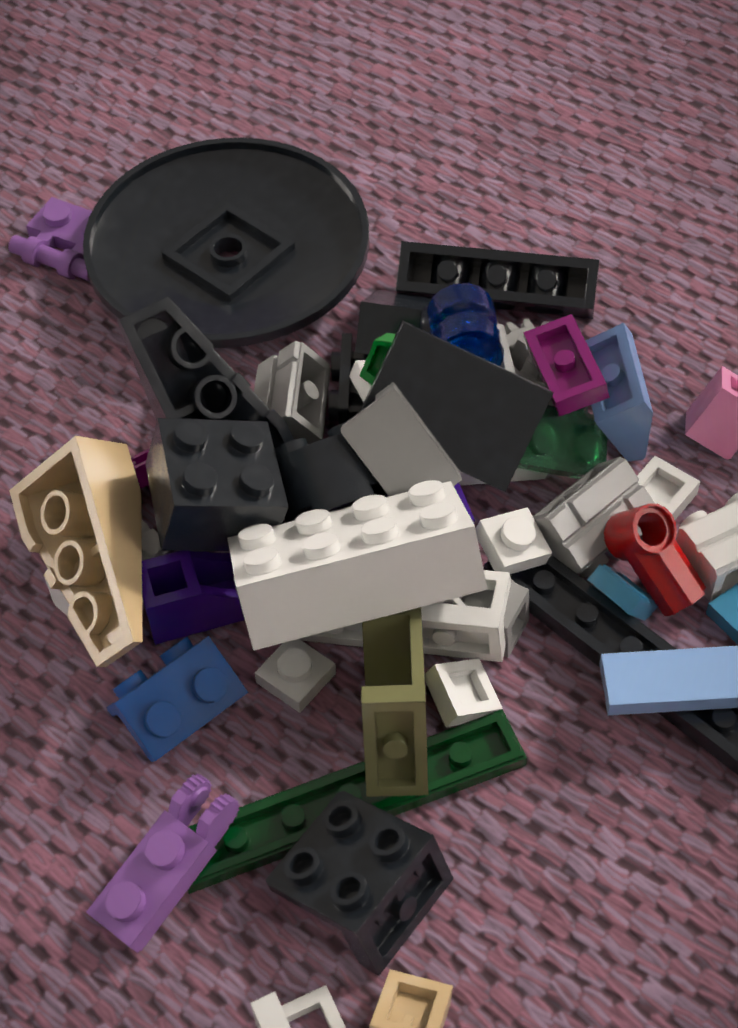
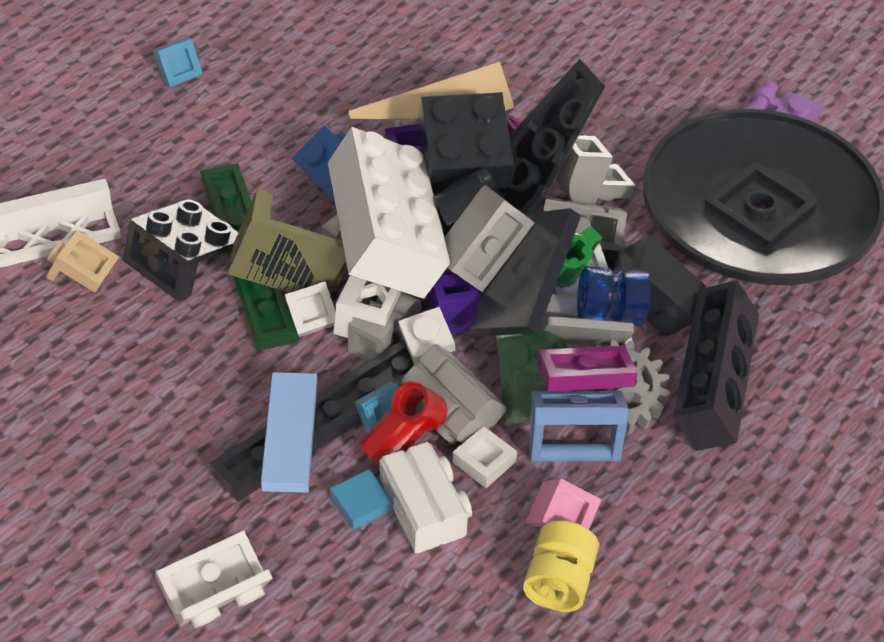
camera: 90 degrees right, 5 degrees down
(163, 864) = (213, 155): medium lavender hinge -> none

